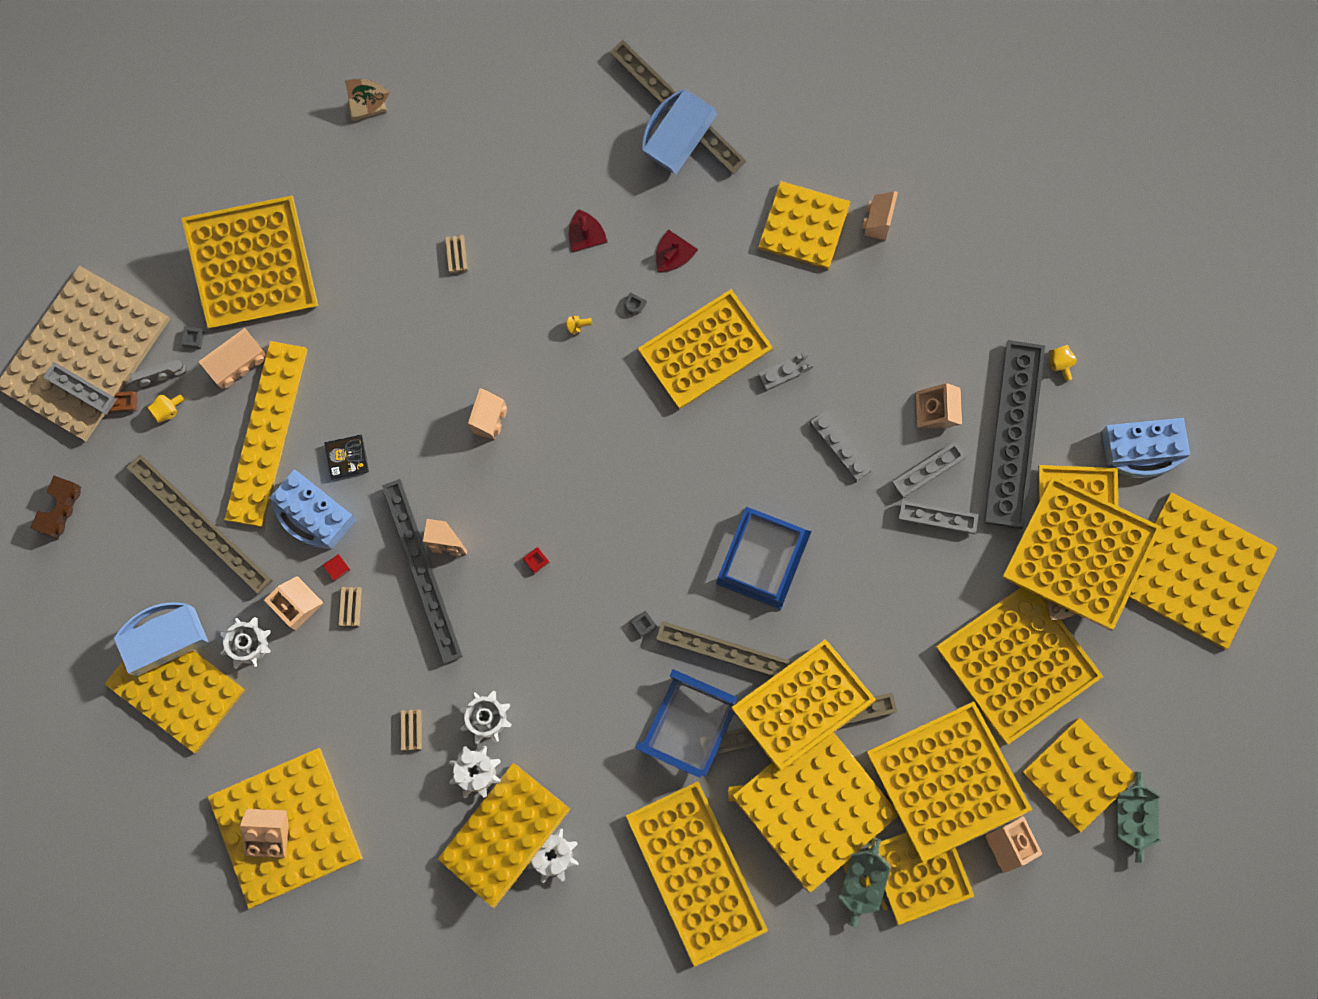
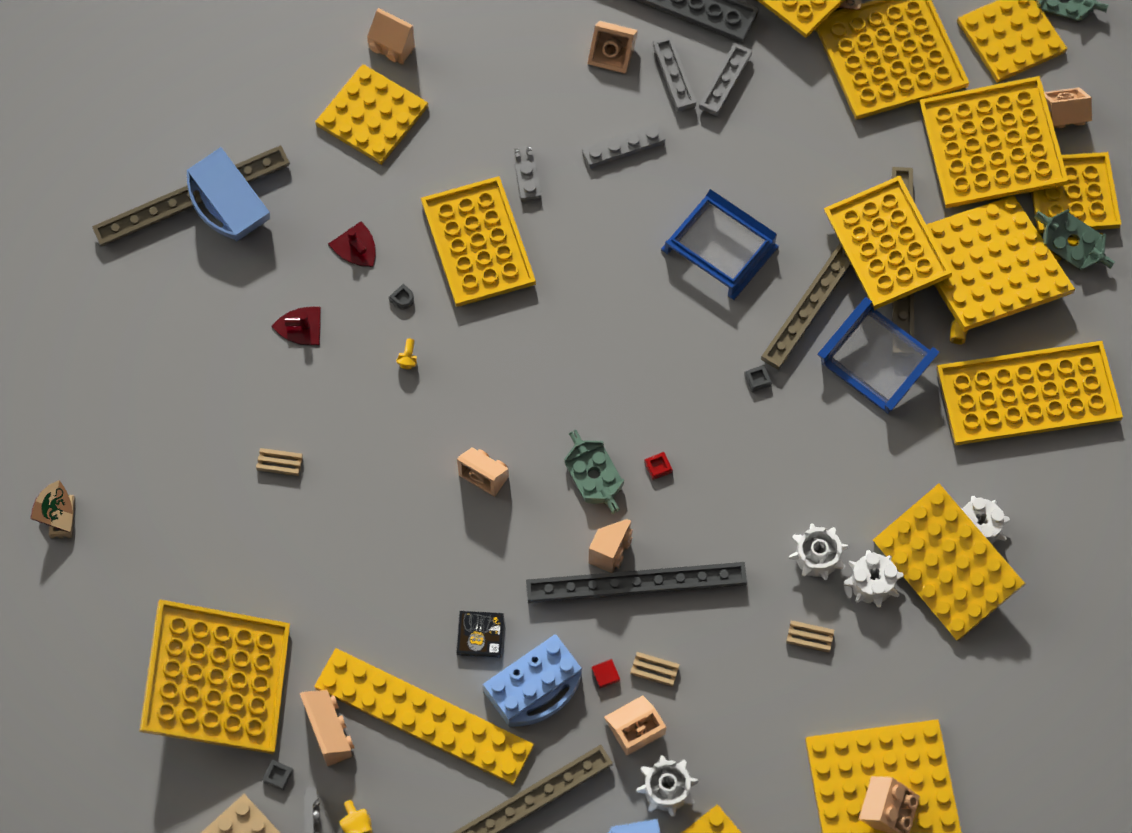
camera: 80 degrees left, 10 degrees down
(519, 493) = (593, 456): none -> sand green plate

